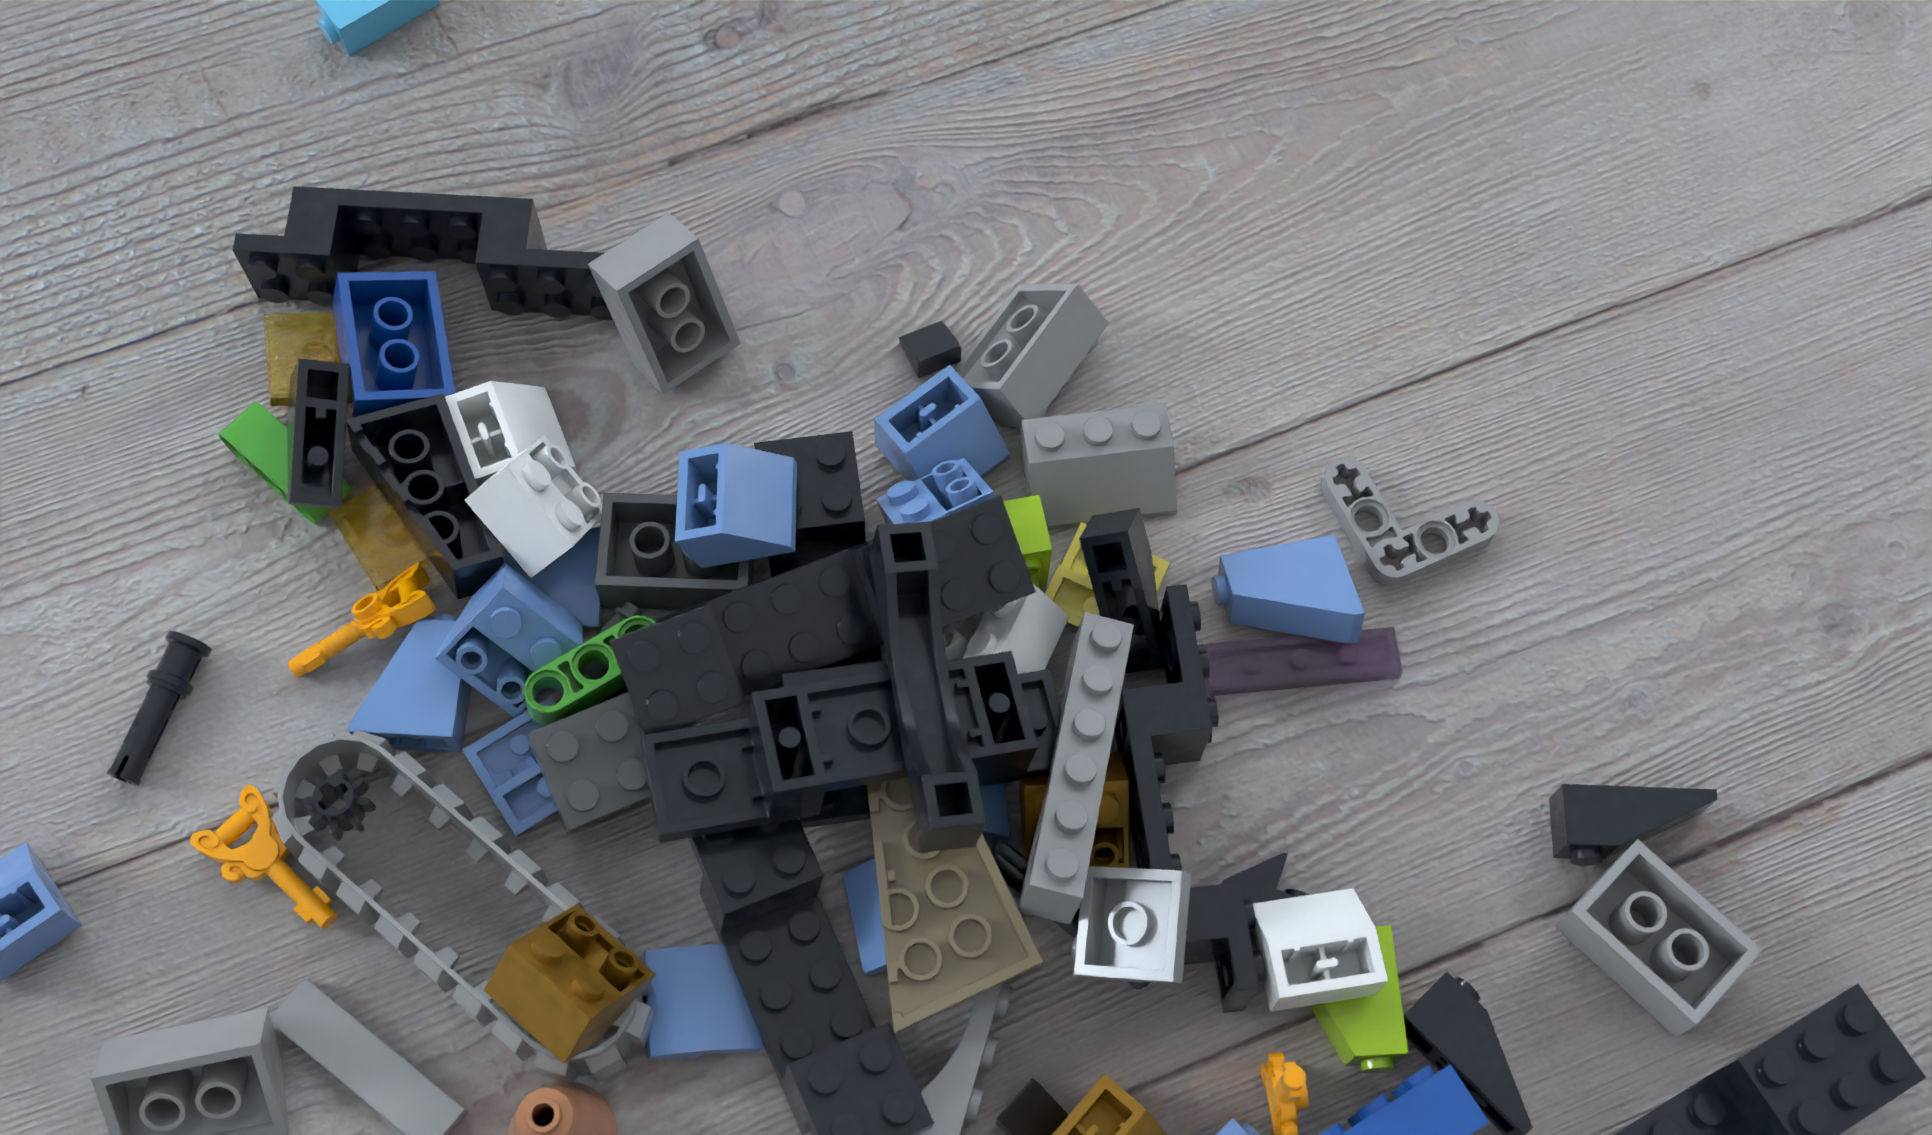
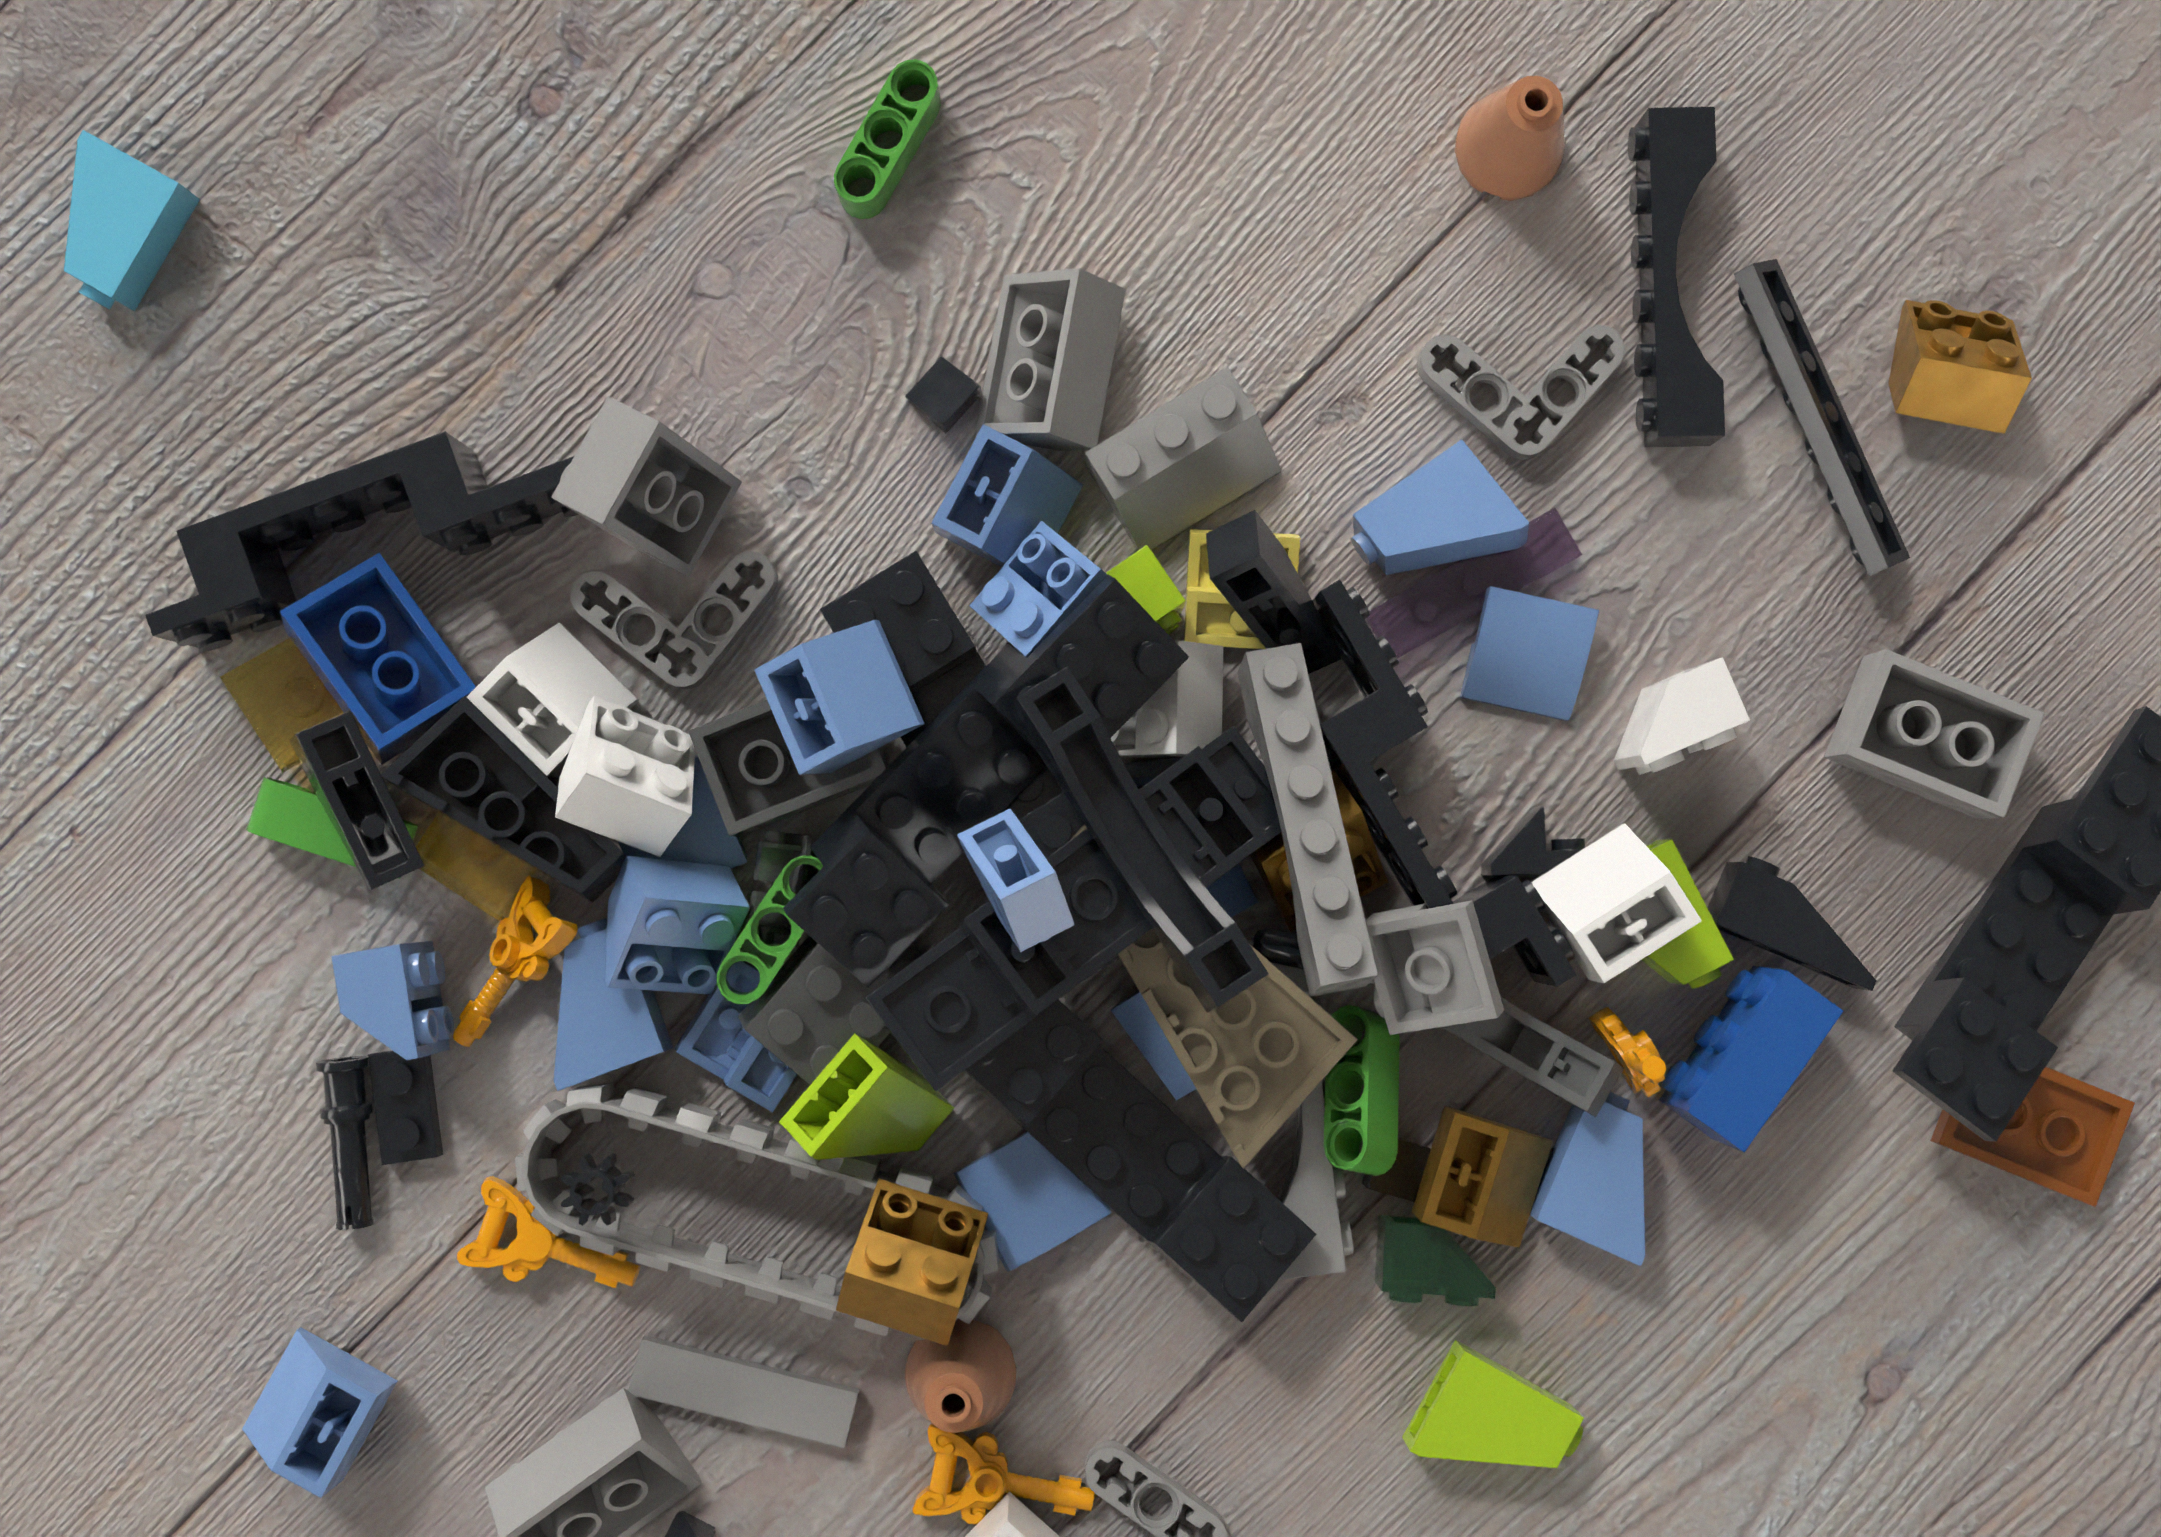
camera: 20 degrees left, 20 degrees up
(219, 702) = (405, 1107): none -> black plate
(265, 597) = (396, 996): none -> medium blue slope
(597, 846) = (865, 1106): none -> lime slope
(642, 439) = (691, 632): none -> light grey beam
(811, 676) = (1017, 880): none -> medium blue slope
(980, 136) = (887, 114): none -> bright green beam
(1029, 1030) = (1375, 1113): none -> bright green beam
(1190, 1051) = (1543, 1056): none -> dark grey arch
(1326, 732) = (1529, 653): none -> medium blue slope
(1439, 828) = (1678, 713): none -> white slope
(1468, 336) = (1513, 139): none -> nougat cone
(1536, 573) = (1680, 388): none -> black arch
(1606, 819) = (1850, 627): black slope -> none
(1649, 659) = (1814, 400): none -> black plate
(1779, 652) = (1957, 366): none -> pearl gold slope

